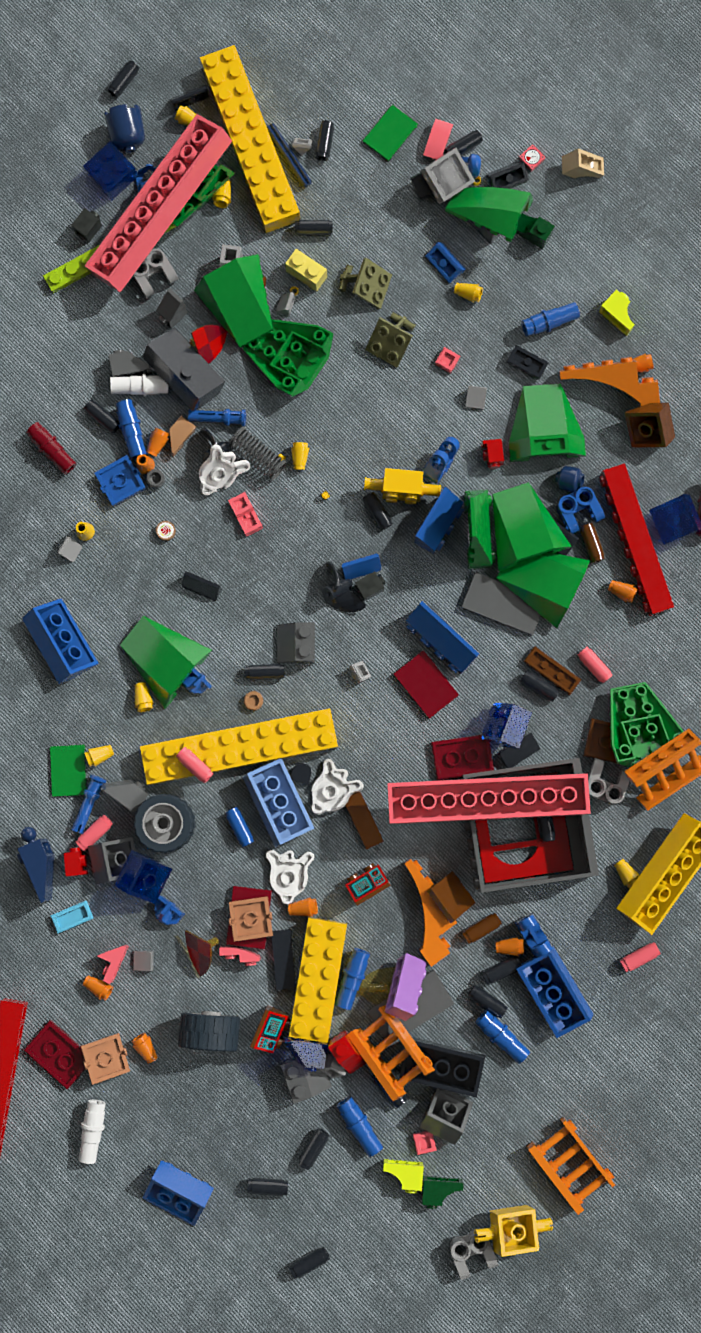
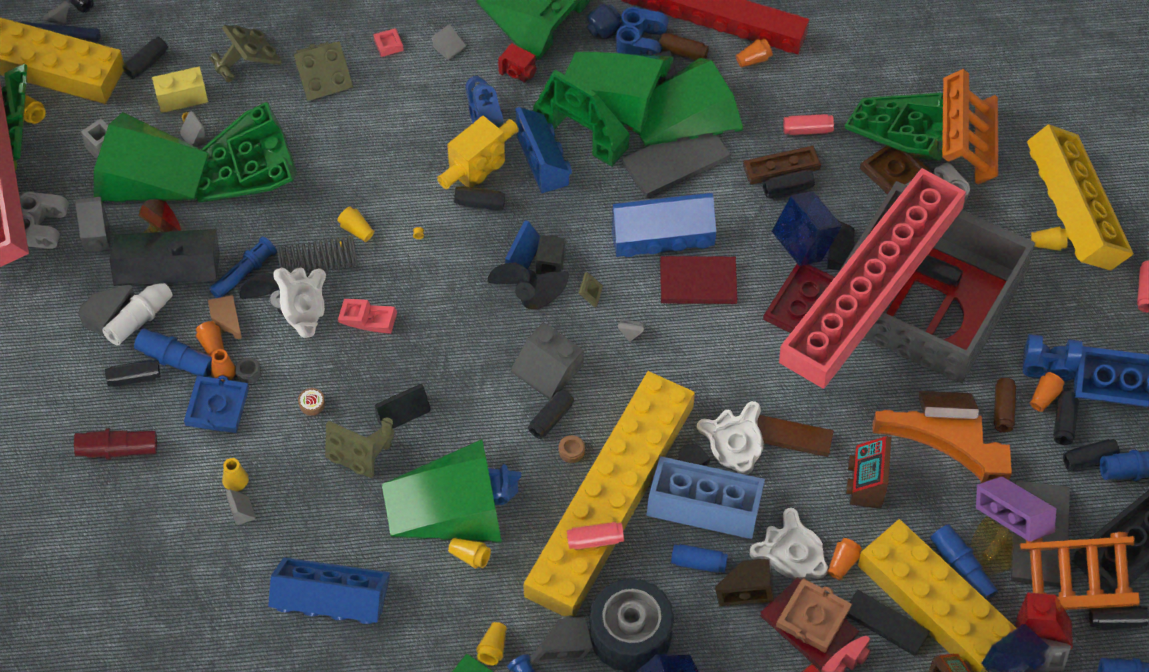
camera: 55 degrees left, 25 degrees down
(155, 591) = (355, 450): none -> olive plate
(244, 867) = (747, 584): none -> dark brown slope
(366, 628) = (590, 289): none -> olive slope

